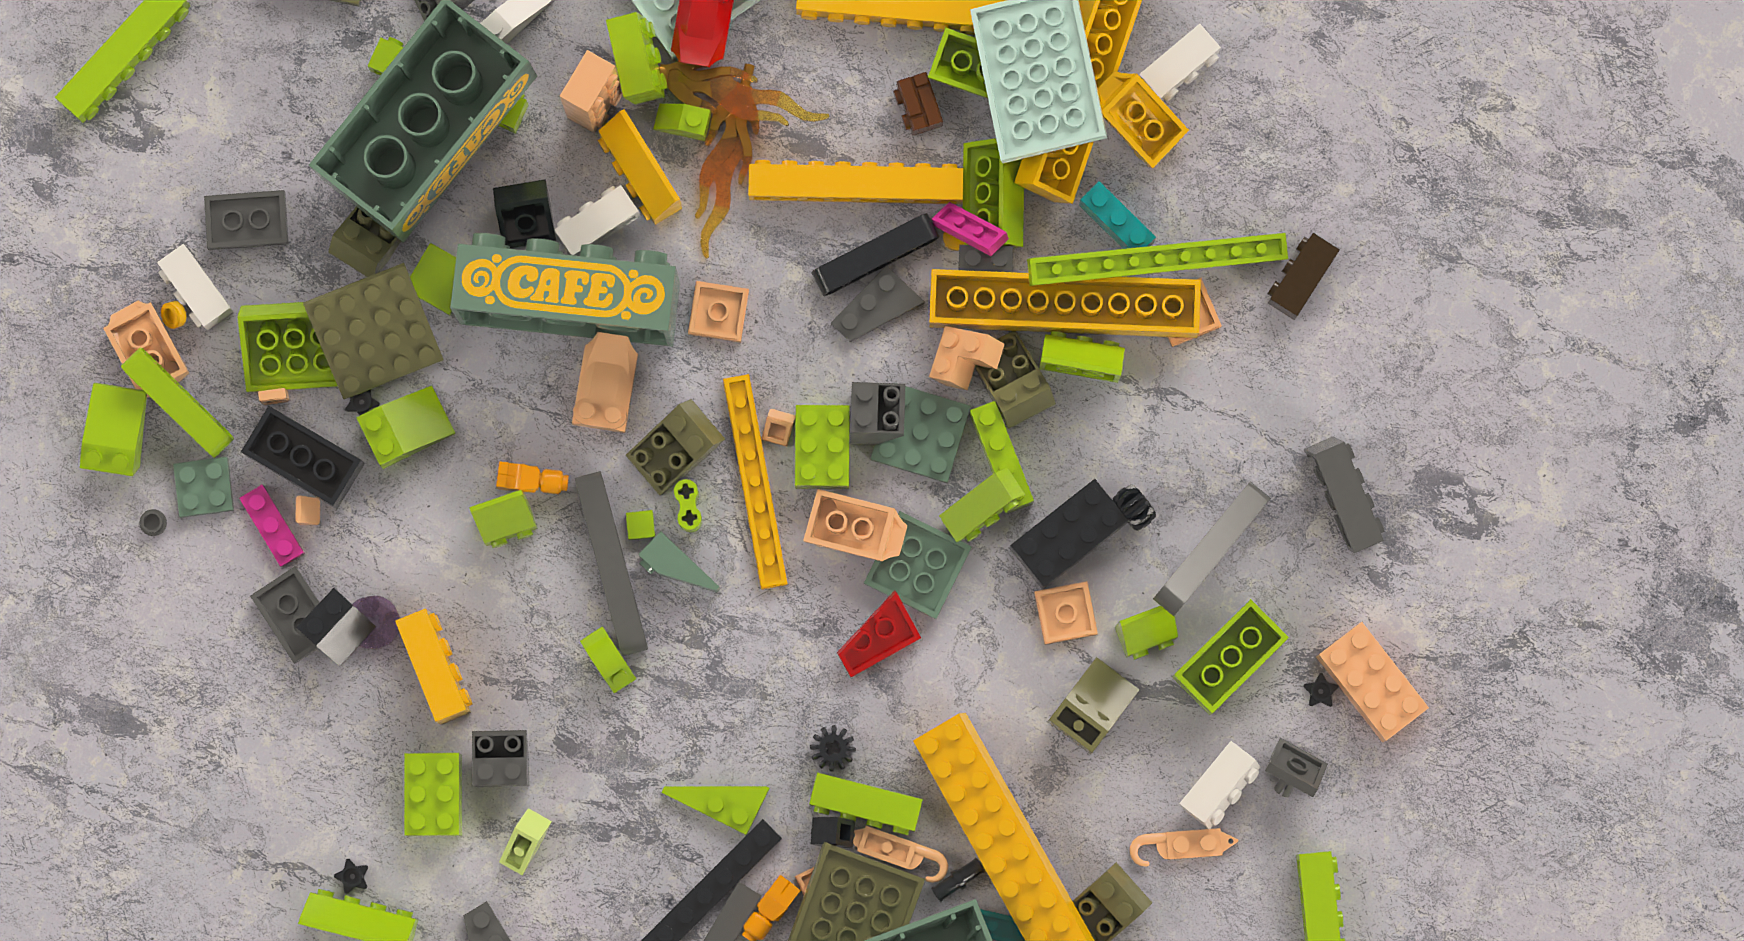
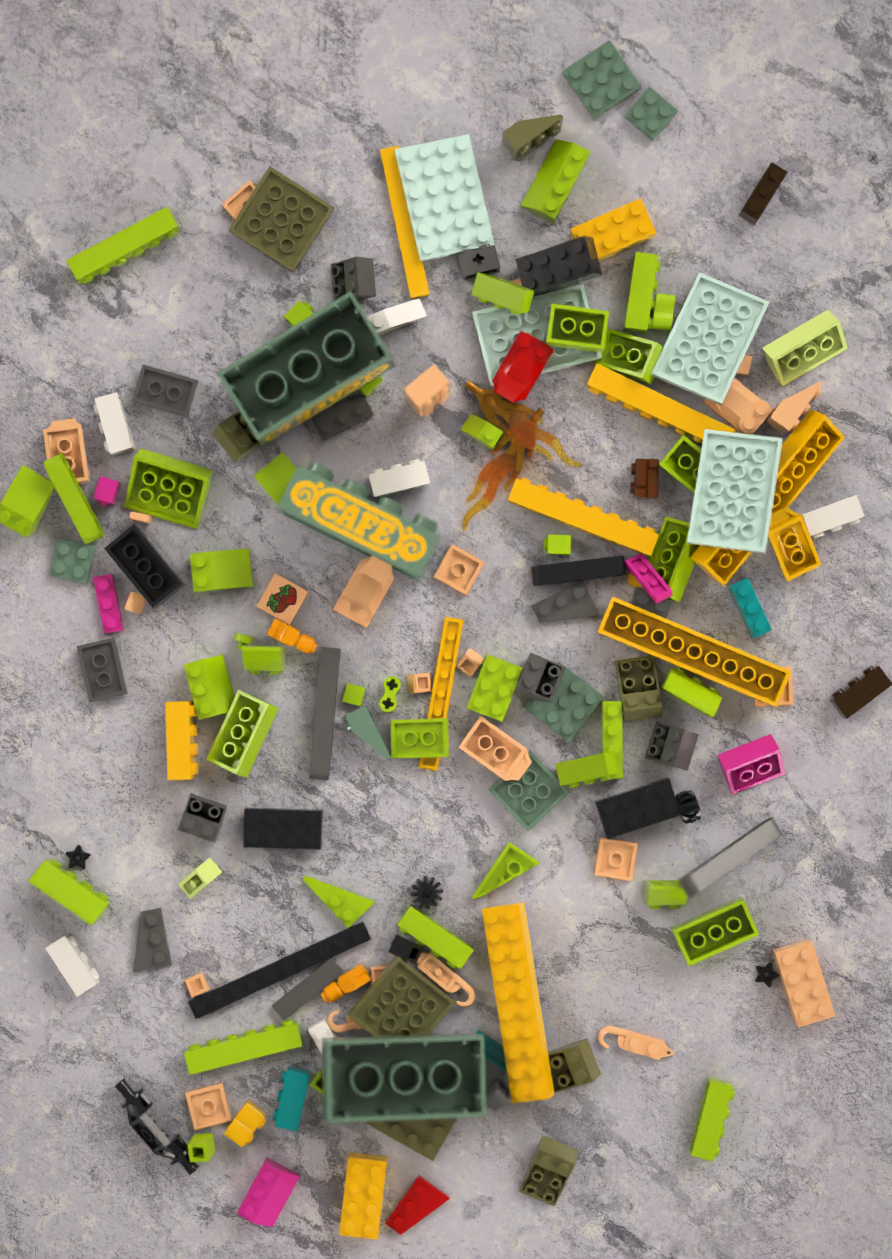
camera: 25 degrees right, 5 degrees up
(153, 522) = (30, 572): dark grey plate -> none
(173, 314) = (93, 437): yellow tile -> none
(216, 378) = (107, 491): none -> dark pink brick
(336, 627) = (125, 689): black slope -> none
(369, 403) = (193, 541): black plate -> none
(373, 331) = (222, 499): olive plate -> none
(387, 614) = (141, 691): clear purple plate -> none
(432, 794) = (150, 824): lime brick -> none
(447, 584) = (210, 686): none -> lime slope
(463, 504) = (242, 640): none -> lime tile
(490, 169) = (341, 417): none -> dark grey wing
(500, 434) = (282, 599): none -> light nougat tile
(512, 629) = (242, 733): none -> lime slope
(524, 212) = (352, 455): black slope -> none
(608, 659) = (298, 777): lime brick -> none
(611, 733) = (283, 828): none -> black brick
(636, 58) = (466, 378): lime brick -> none
(639, 167) = (441, 453): yellow slope -> none
(675, 446) = (396, 650): olive slope -> none
(720, 478) = (419, 683): none -> light nougat slope
(748, 548) = (419, 738): none -> lime plate
(836, 231) = (557, 544): none -> lime brick
(879, 637) = (485, 830): red wing -> none
(927, 674) = (507, 866): none -> lime wing
(958, 879) = (477, 1010): black pin -> none
(959, 354) = (609, 660): light nougat brick -> none
(1083, 437) = (671, 746): none -> dark grey slope
(1093, 705) = (611, 929): olive slope -> none
(1157, 259) = (767, 646): lime plate -> none
(1196, 422) = (751, 764): none -> dark pink slope
(1220, 785) = (676, 1014): white brick -> none
(1295, 769) = (730, 1022): dark grey tile -> none
(1346, 493) = (833, 849): dark grey wedge -> none

